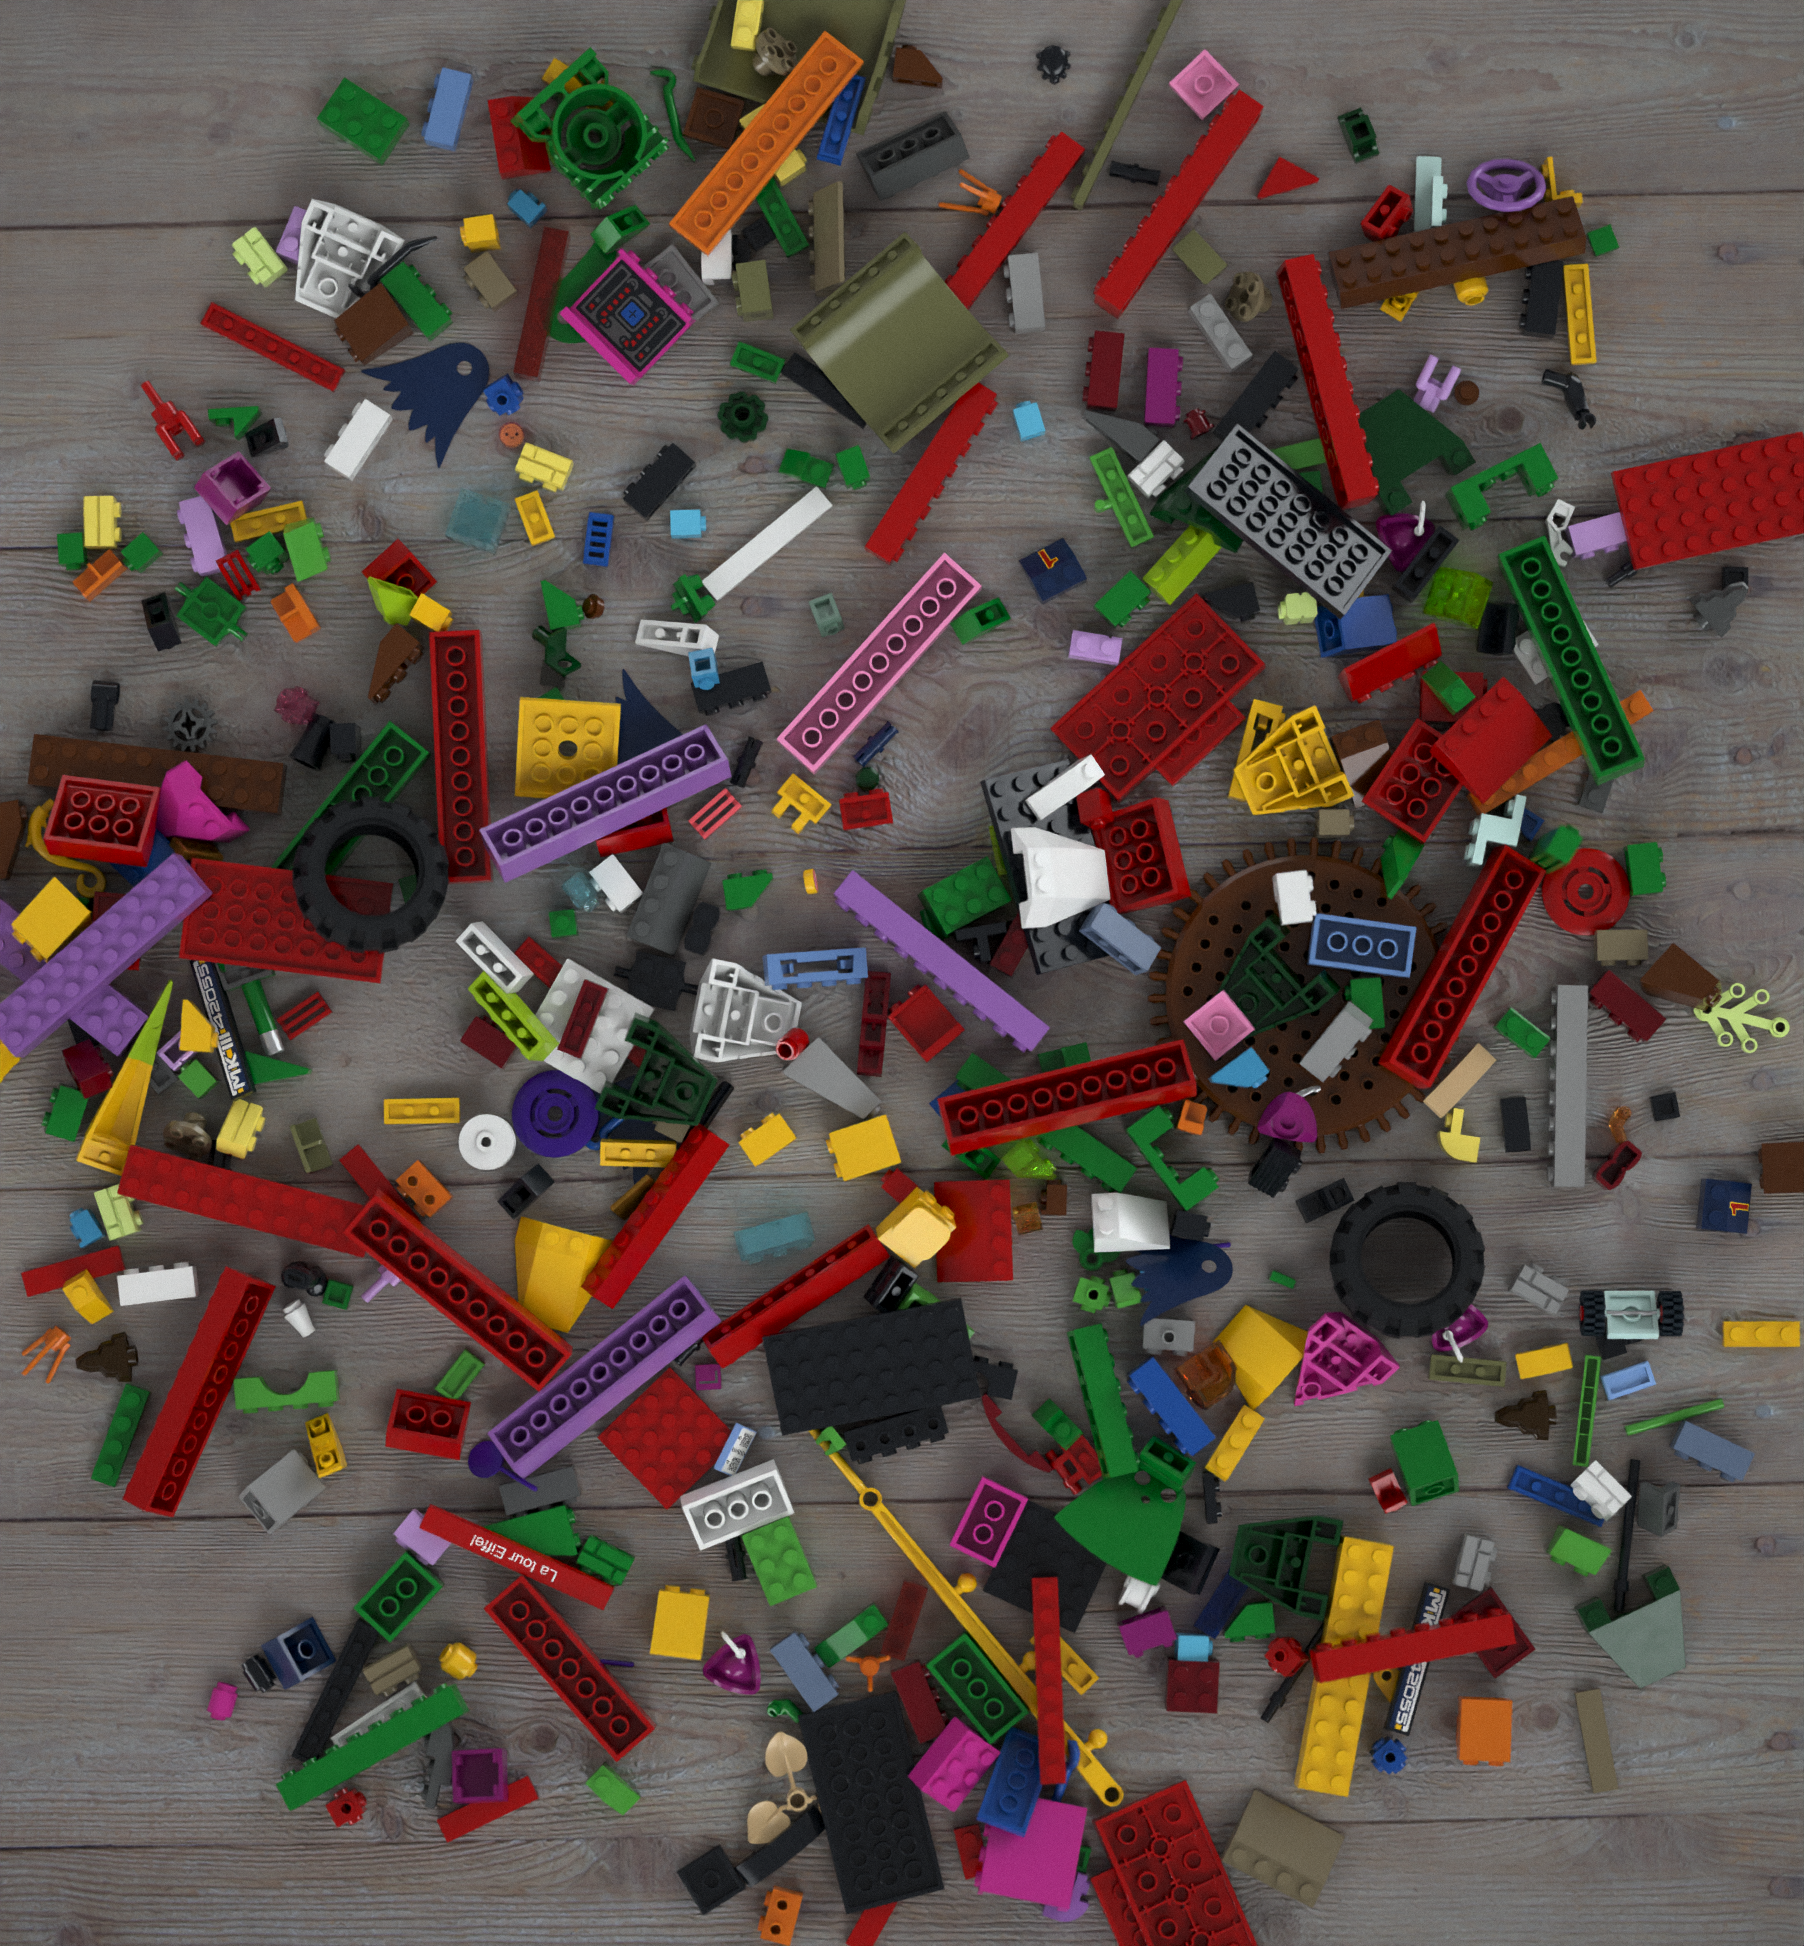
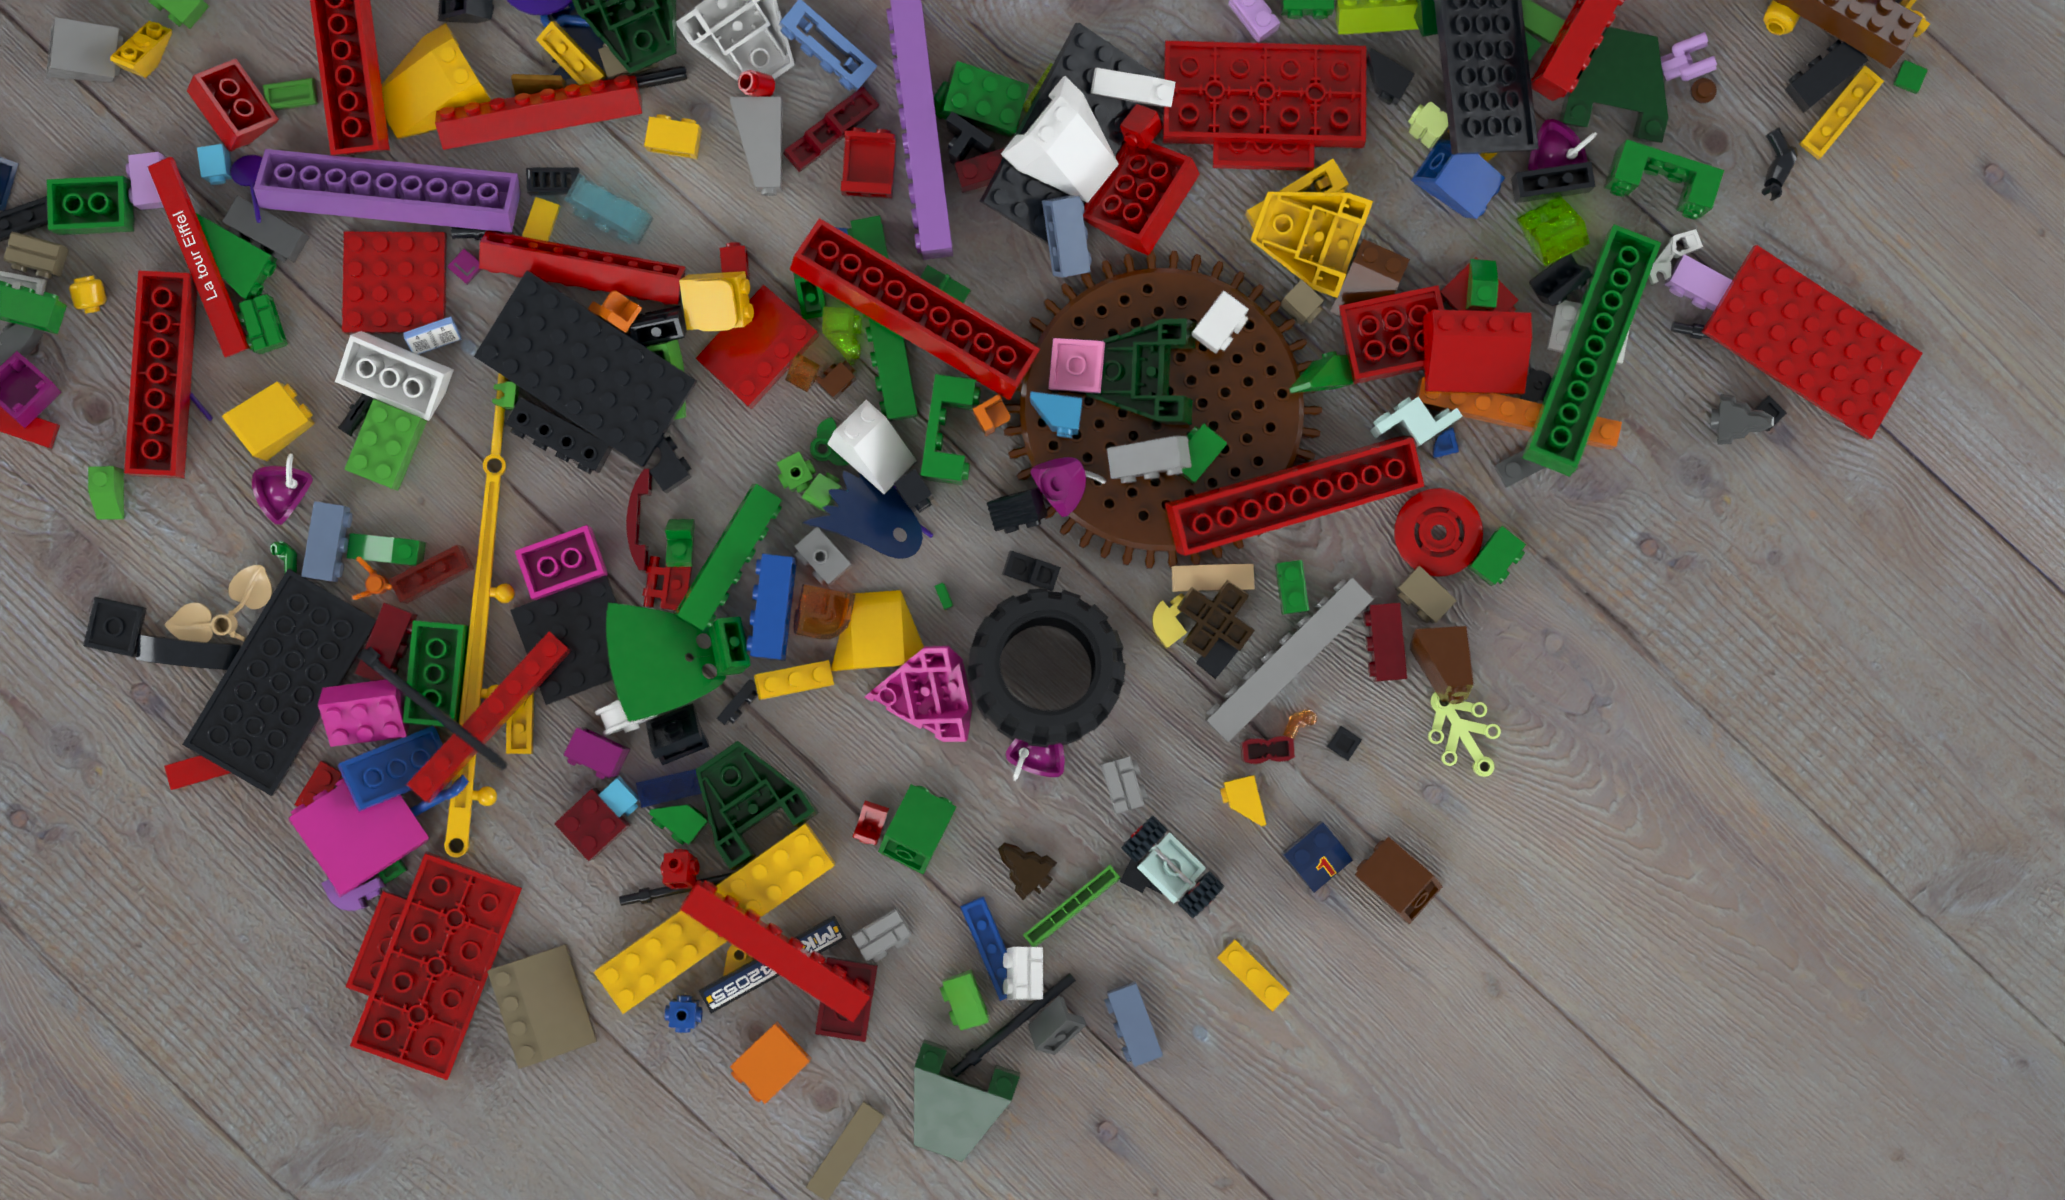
camera: 45 degrees right, 0 degrees up
(457, 1479) = (214, 163): none -> medium azure brick
(711, 1267) = (532, 190): none -> black slope
(730, 1291) = (541, 219): none -> yellow tile
(781, 1915) = (137, 699): orange brick -> none
(853, 1303) = (617, 310): none -> orange panel
(863, 1148) = (736, 209): yellow slope -> none
(922, 1721) = (371, 658): none -> black hinge
(1361, 946) = (1235, 407): medium blue brick -> none
(1390, 664) = (1458, 227): red slope -> none
(1469, 1371) = (1014, 793): olive plate -> none
(1491, 1108) = (1215, 618): none -> dark brown plate
(1544, 1360) = (1076, 840): yellow slope -> none
(1556, 848) = (1448, 468): green brick -> none
(1627, 1380) = (1123, 913): light blue tile -> none
(1633, 1215) = (1244, 798): none -> yellow slope
(1674, 1417) = (1131, 973): bright green piece -> none

